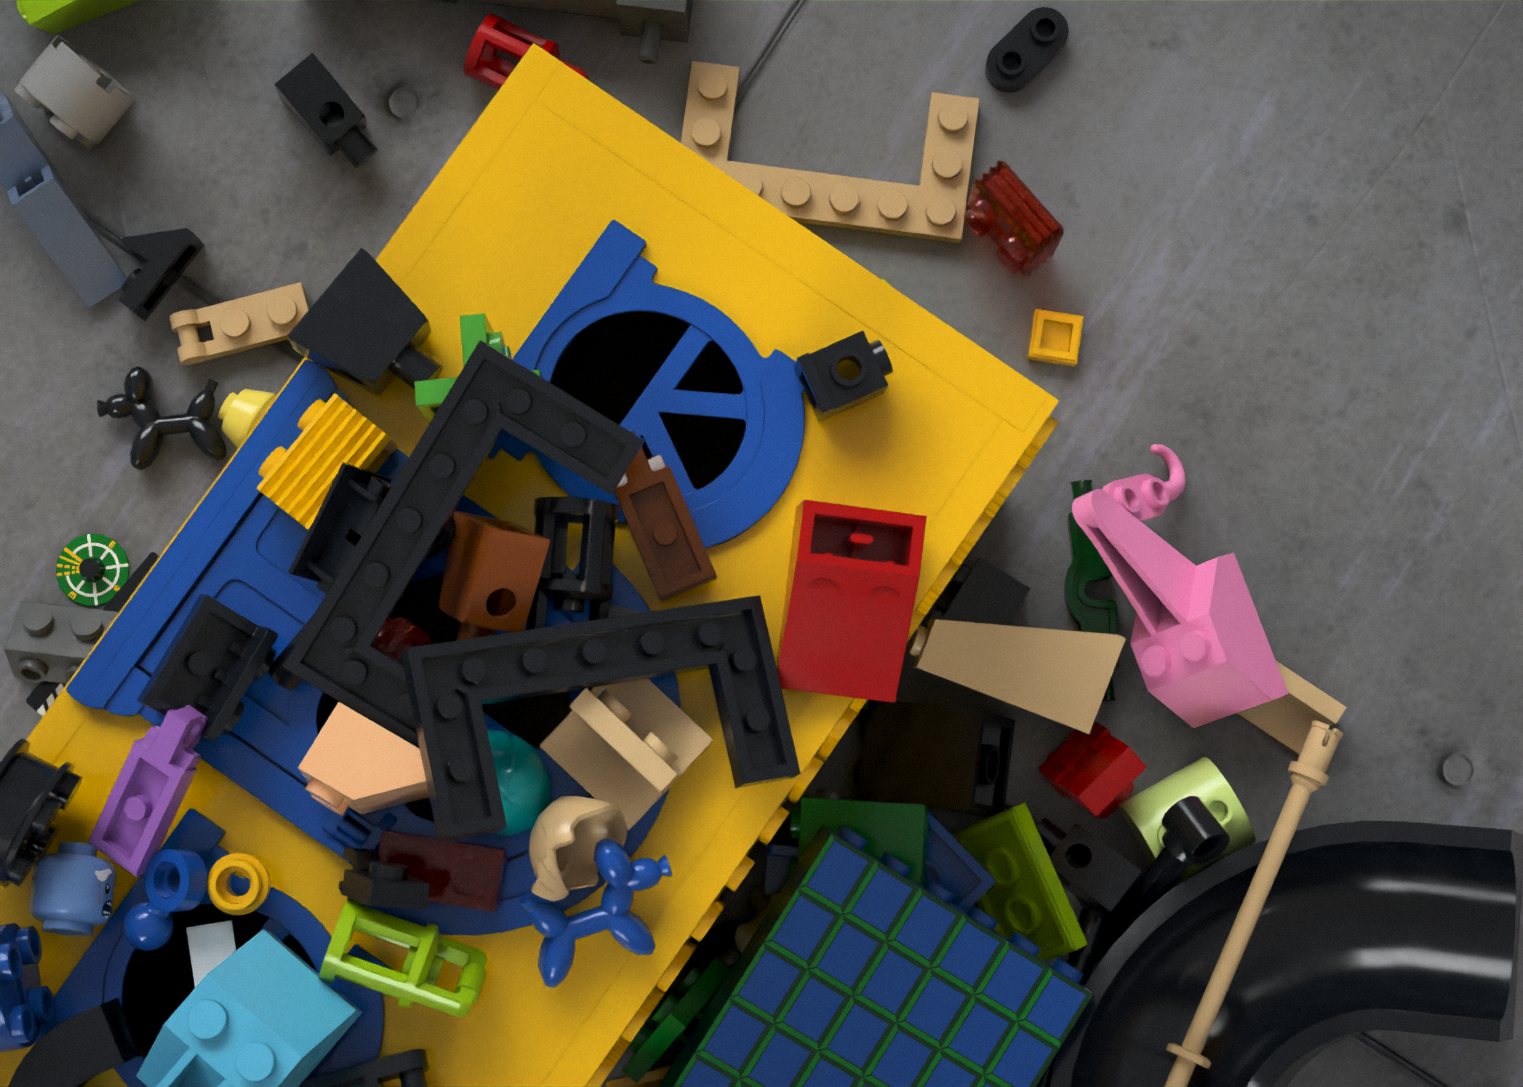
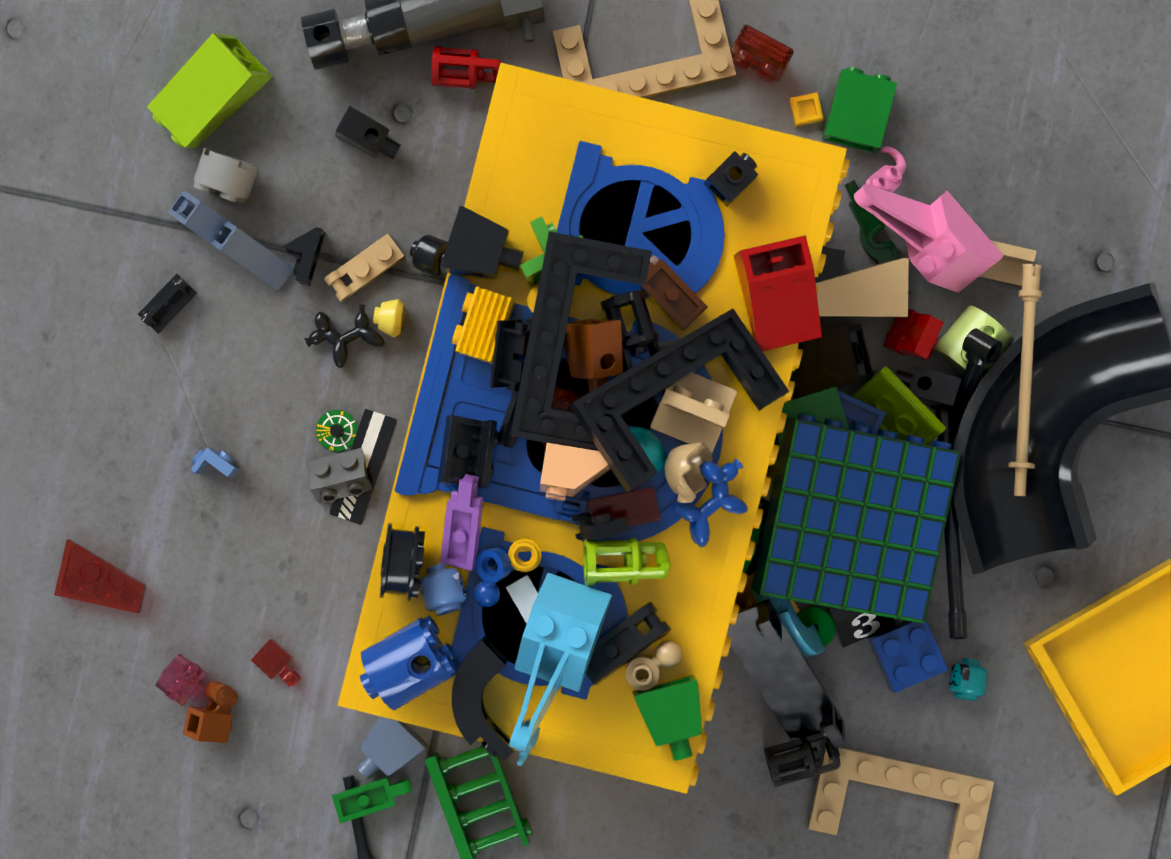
camera: 15 degrees left, 5 degrees up
(1140, 370) = (859, 110): none -> green brick

